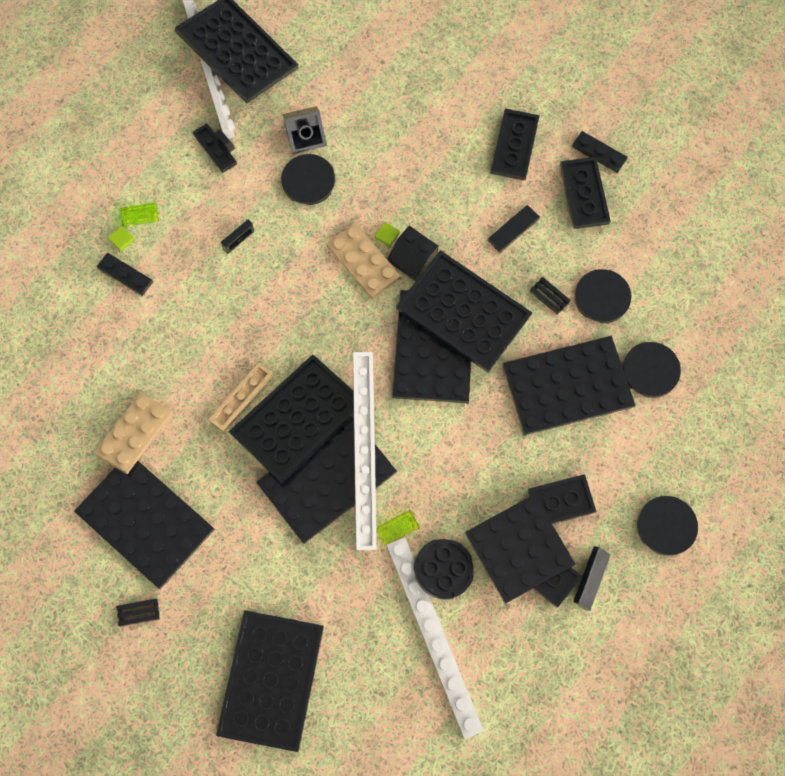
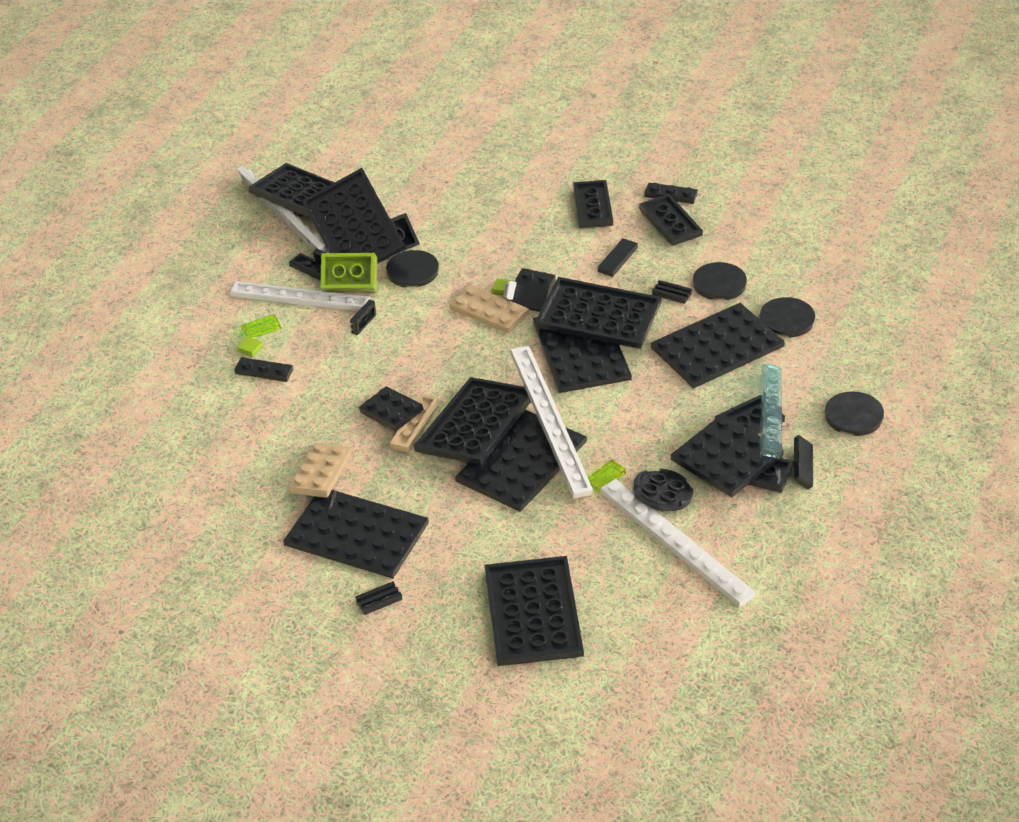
camera: 15 degrees left, 30 degrees down
(189, 183) = (298, 296): none -> white tile
(224, 372) = (391, 408): none -> black plate
(239, 175) = (349, 272): none -> lime brick
(262, 113) = (353, 218): none -> black plate
(388, 247) = (509, 290): none -> white tile
(583, 507) = (771, 411): none -> clear light blue plate

